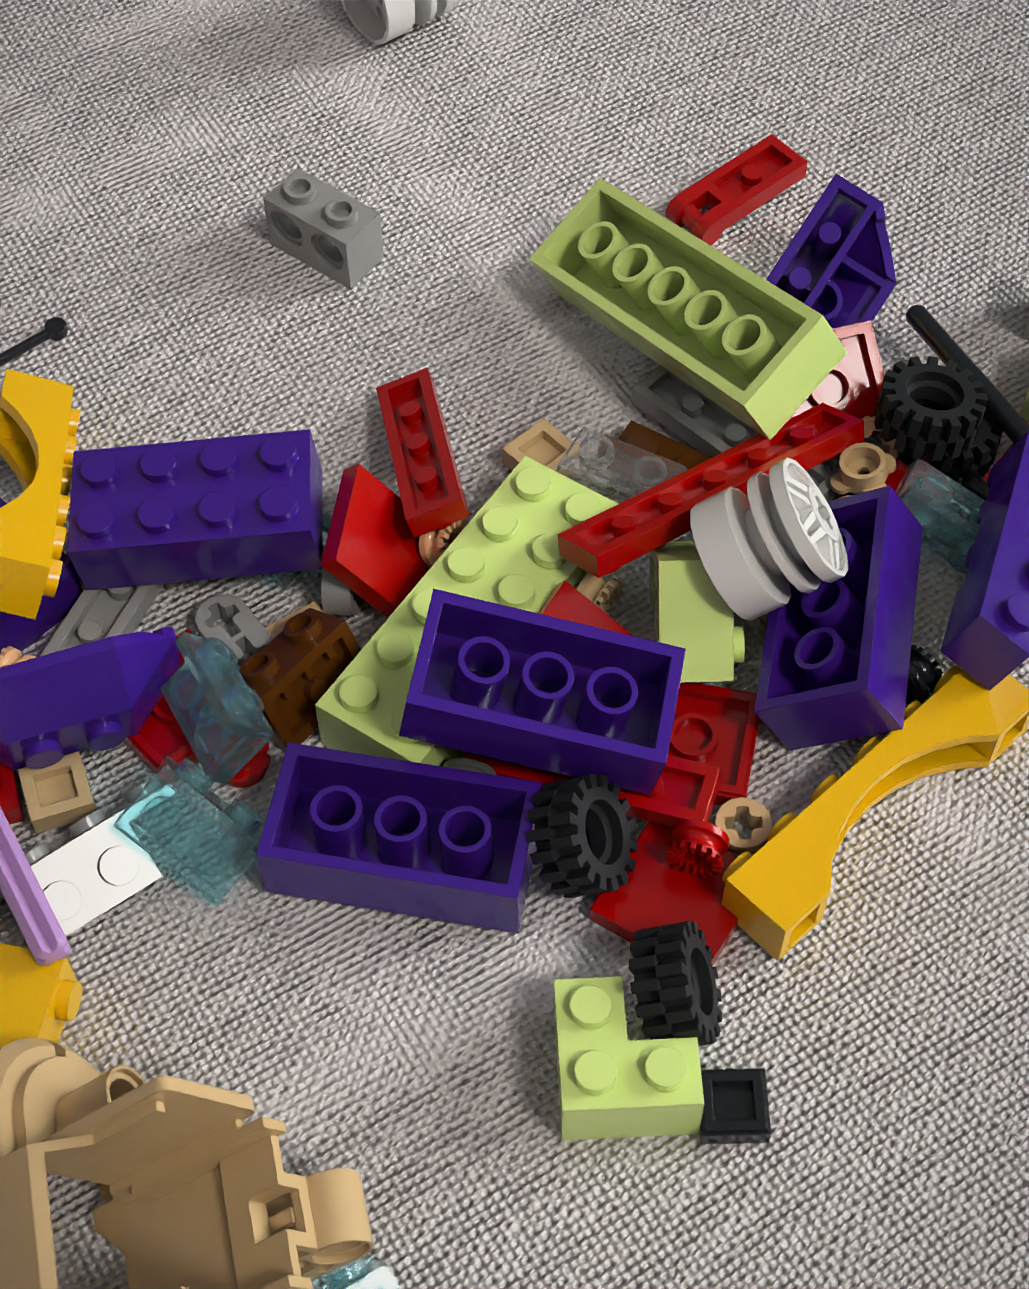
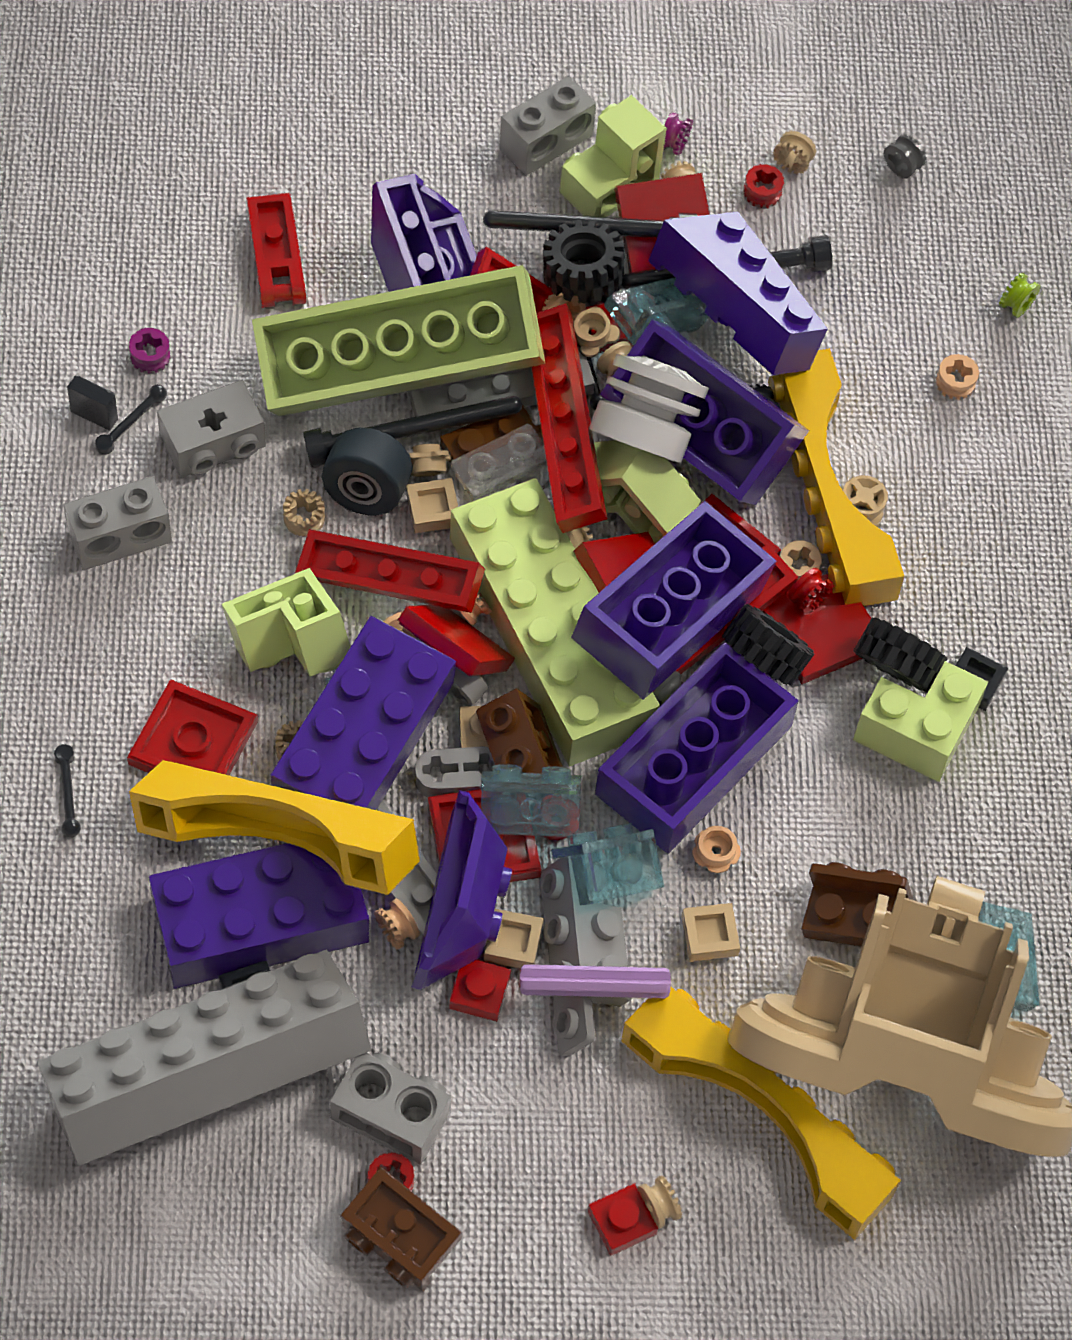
camera: 65 degrees left, 5 degrees up
(134, 404) = (192, 731): none -> red tile
(181, 982) = (710, 932): none -> tan plate
(295, 919) = (716, 837): none -> light nougat plate
(296, 390) = (288, 620): none -> yellowish green brick
(305, 1100) = (845, 901): none -> reddish brown bracket
(419, 188) = (105, 443): none -> black hinge
(446, 148) = (92, 402): none -> black tile
(454, 351) = (312, 504): none -> tan bush
(485, 242) = (211, 429): none -> light grey brick
(530, 376) = (367, 471): none -> black wheel
(538, 334) = (320, 443): none -> black piece
(544, 171) = (139, 356): none -> magenta bush
(588, 415) = (428, 460): none -> tan plate
(874, 835) = (868, 493): none -> tan wheel

